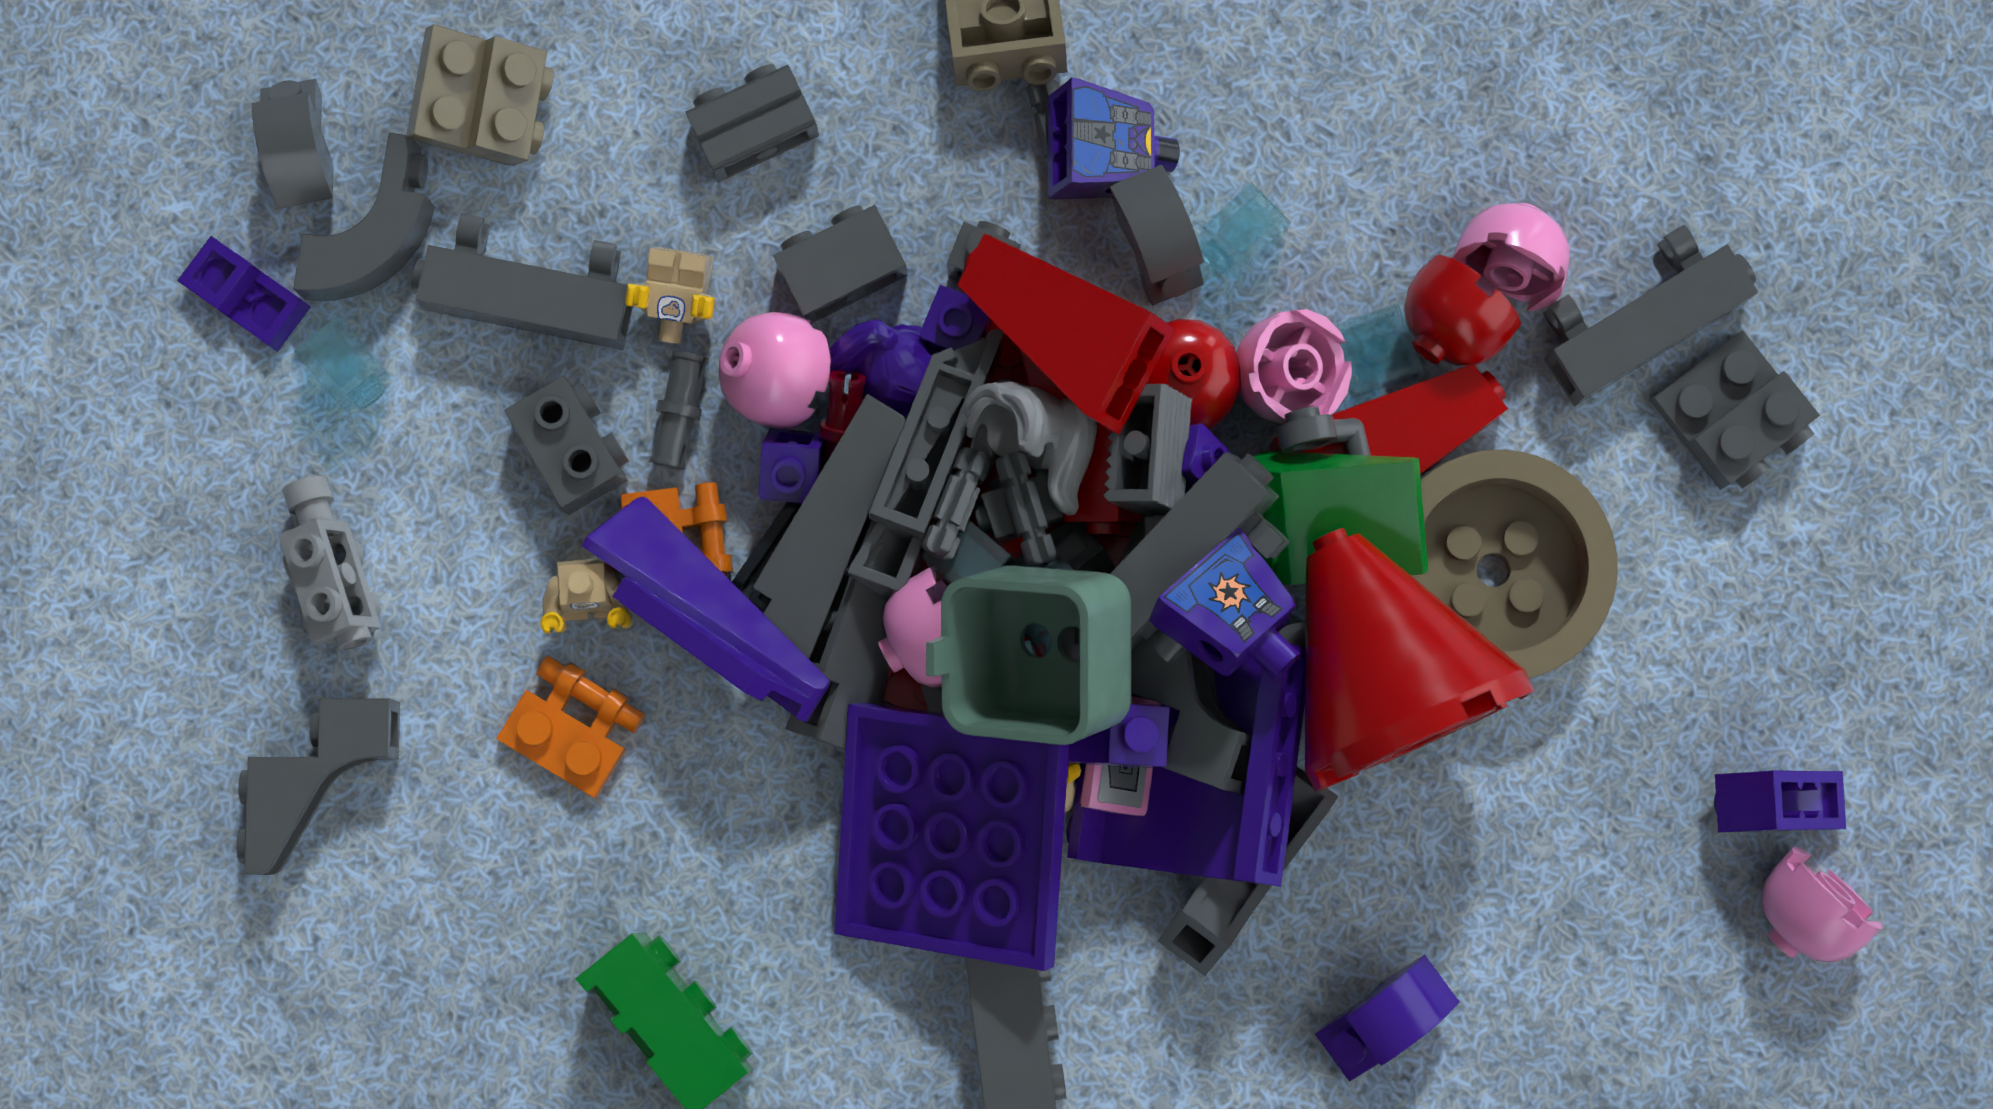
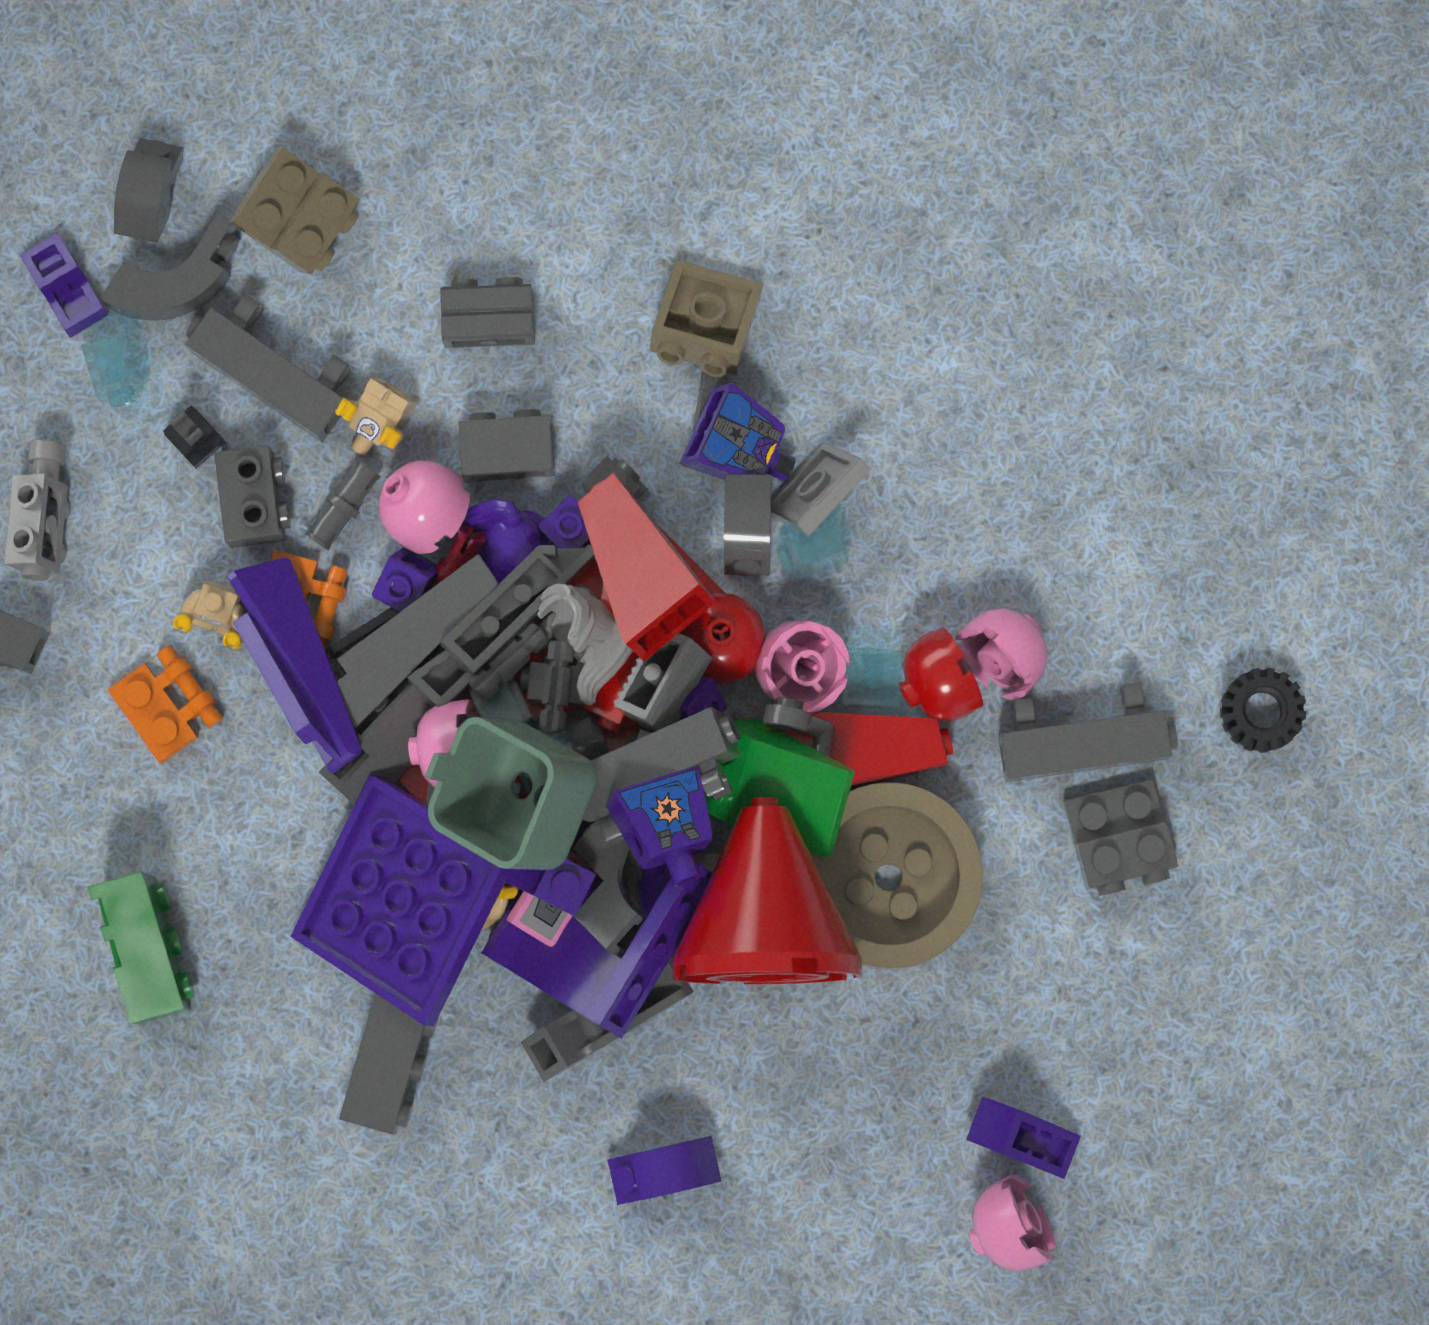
camera: 25 degrees right, 0 degrees up
(471, 404) = (193, 436): none -> black piece
(1222, 157) = (817, 488): none -> light grey plate
(1854, 177) = (1286, 695): none -> black tyre

